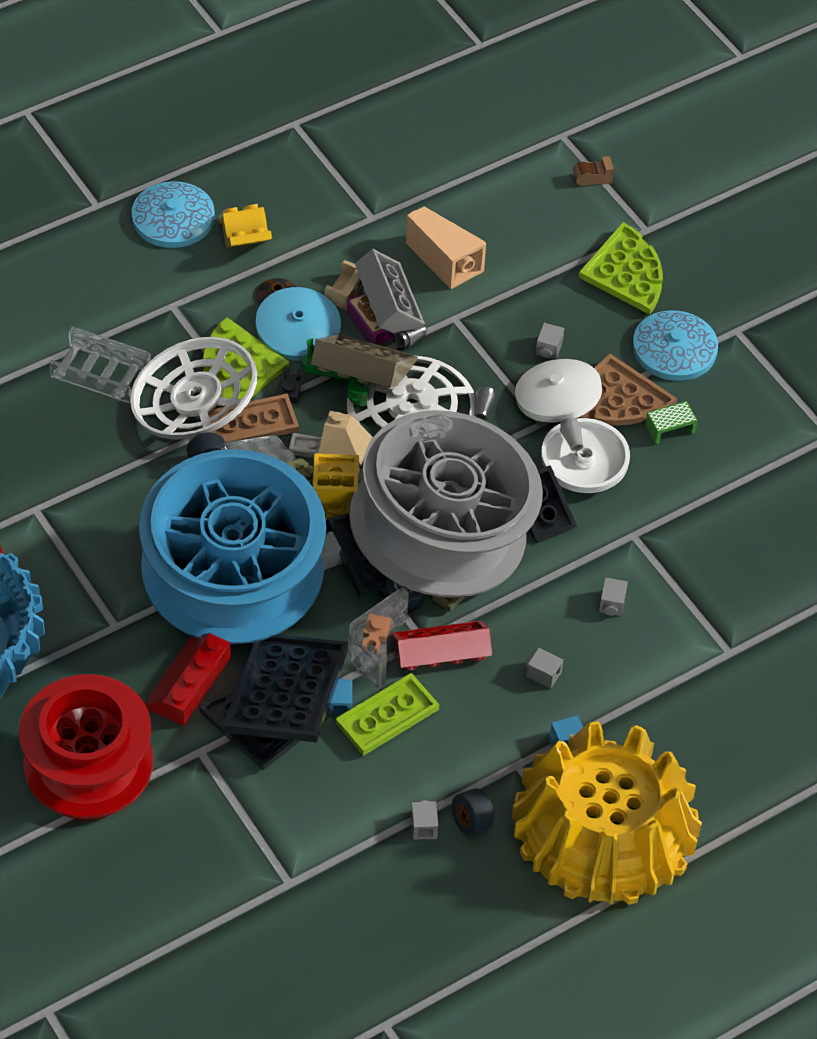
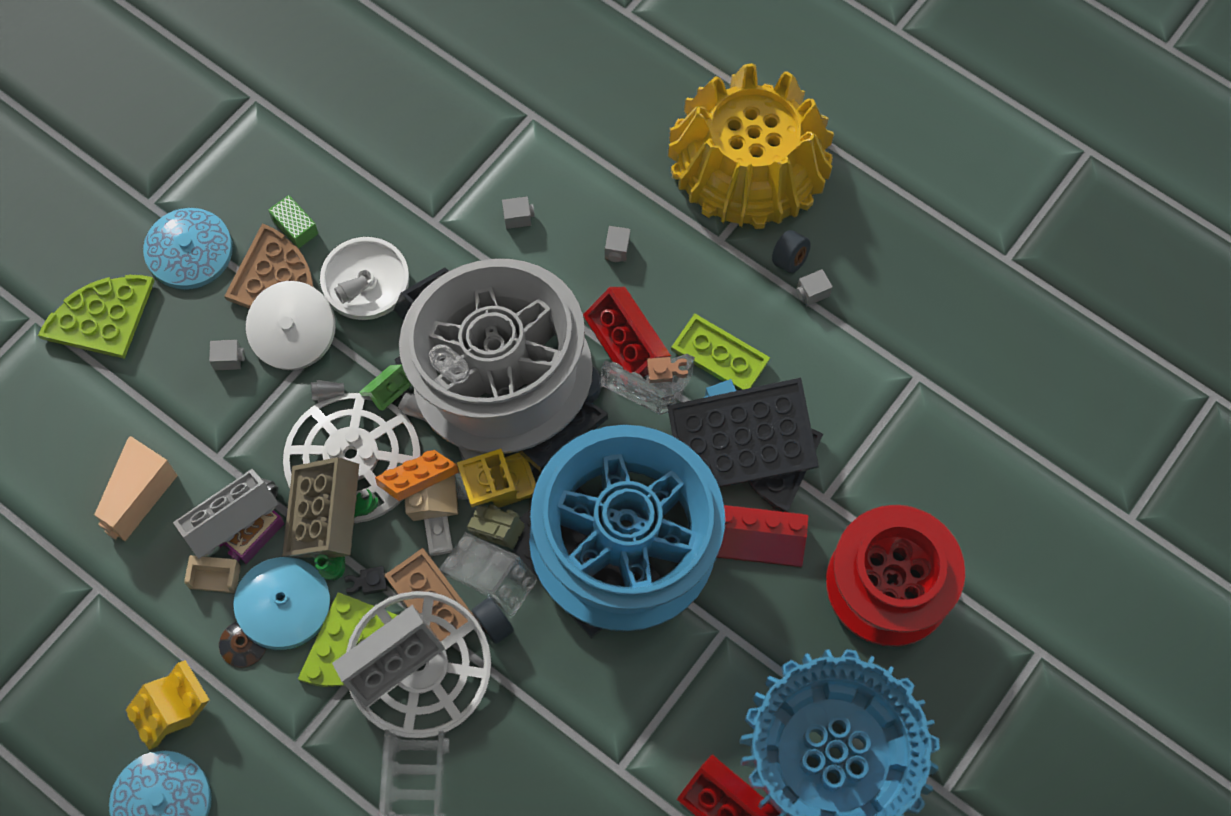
camera: 110 degrees left, 15 degrees up
(206, 359) = (388, 656): none -> light grey slope
(361, 424) = (416, 475): none -> orange plate
(563, 728) = (678, 206): dark azure brick -> none

